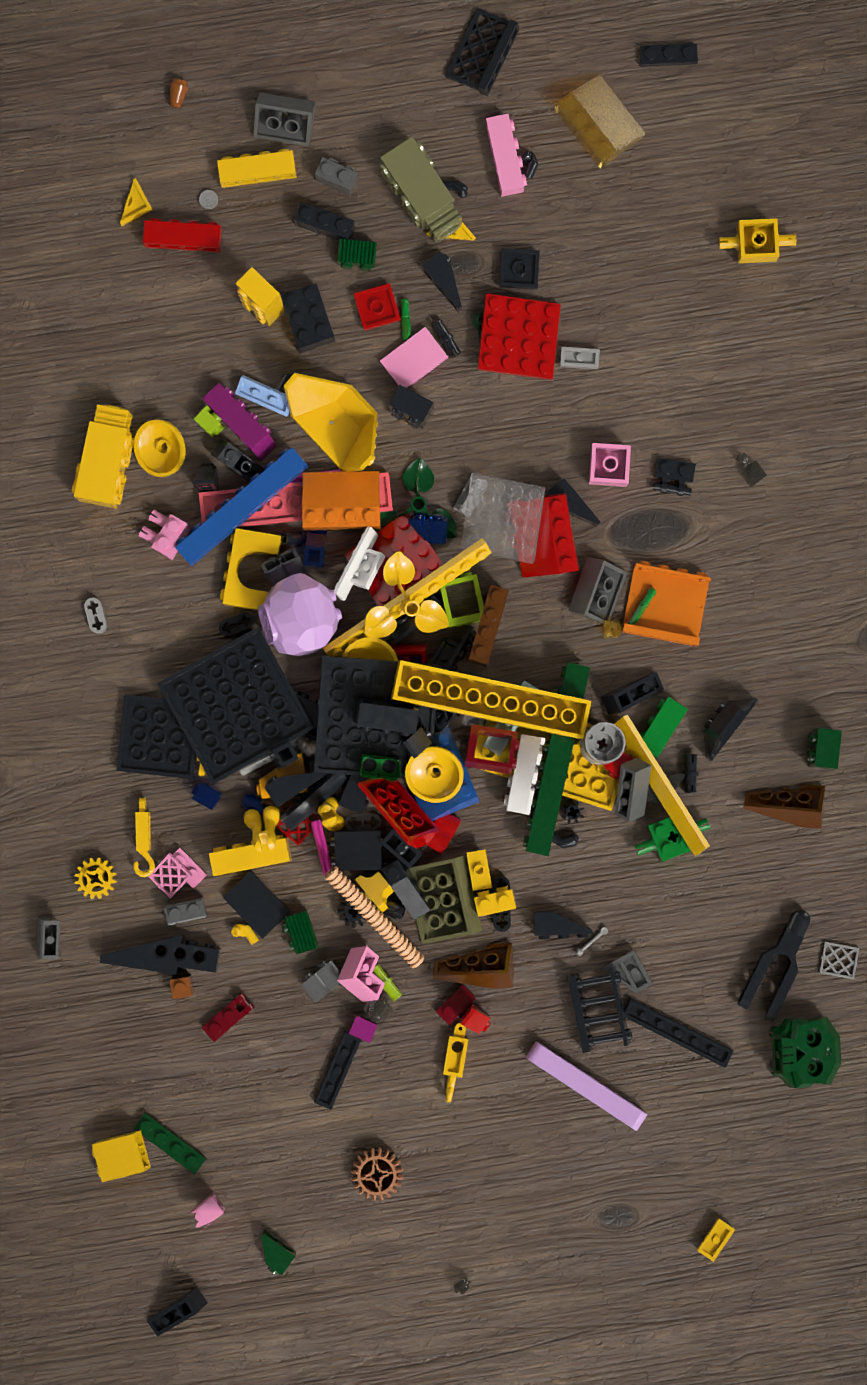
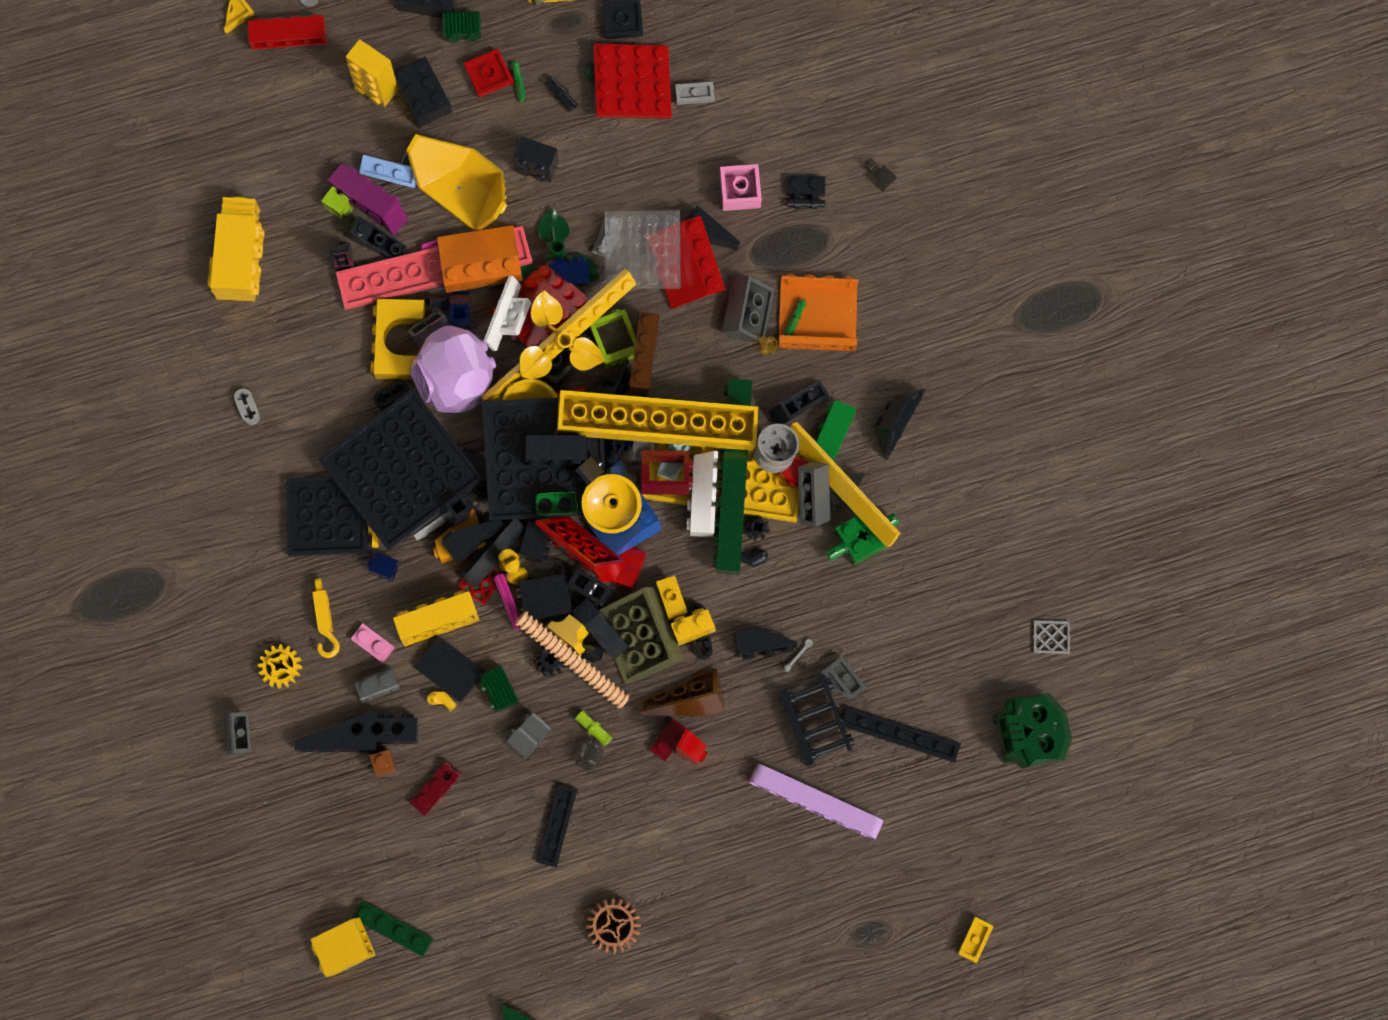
camera: 15 degrees left, 10 degrees down
(151, 450) = (282, 237): yellow dish -> none
(171, 532) = (313, 317): bright pink brick -> none
(179, 866) = (368, 659): bright pink window -> none
(208, 1210) = (443, 989): bright pink piece -> none
(241, 507) = (380, 277): blue brick -> none
(253, 821) = (435, 583): yellow piece -> none
(254, 802) = (434, 569): clear blue brick -> none
(358, 974) = (565, 723): bright pink brick -> none
(363, 1029) = (577, 777): magenta panel -> none
(414, 359) = (532, 116): bright pink tile -> none
(441, 274) = (546, 33): black slope -> none
(455, 1061) = (676, 796): yellow piece -> none
(690, 773) = (870, 473): black pin -> none
(787, 944) = (996, 627): black piece -> none
(795, 806) = (983, 490): reddish brown wedge -> none
(824, 748) = (999, 427): dark green brick -> none

